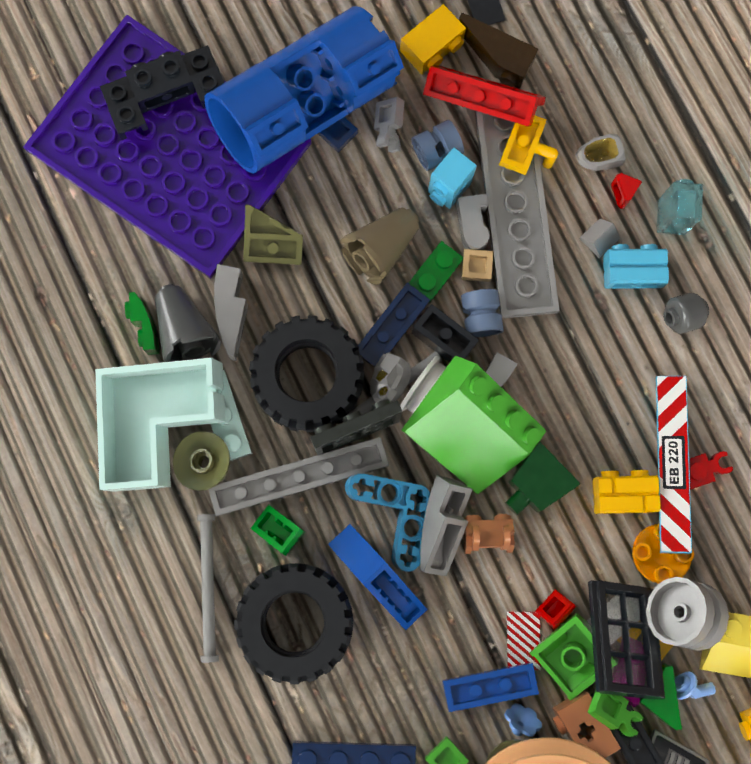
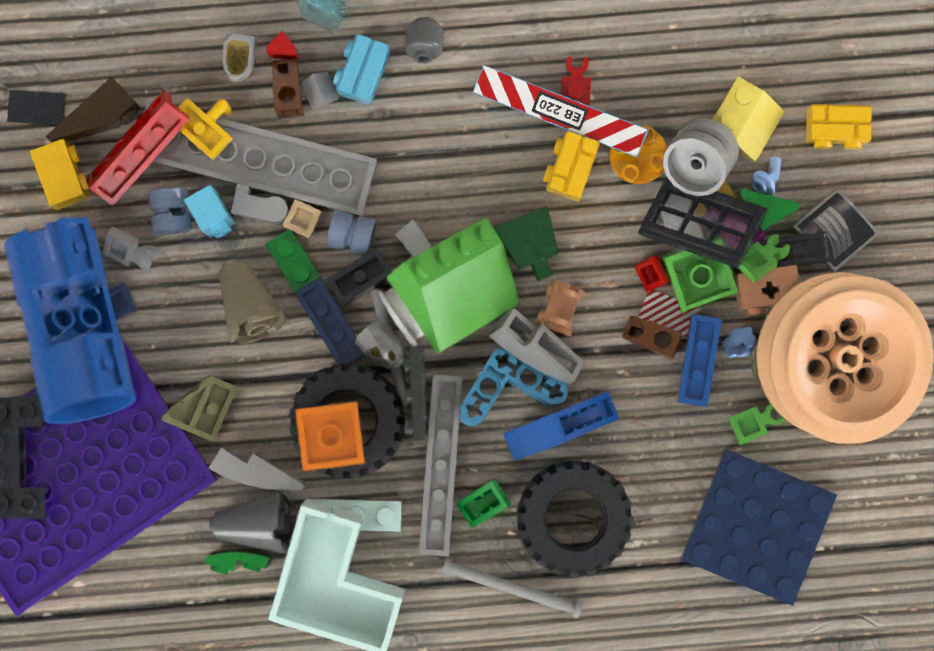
camera: 60 degrees left, 5 degrees up
(189, 458) = (385, 563): olive dish -> none
(286, 359) = (330, 436): none -> orange plate
(495, 632) = (652, 336): none -> reddish brown leg
(589, 207) = (287, 89): none -> reddish brown leg

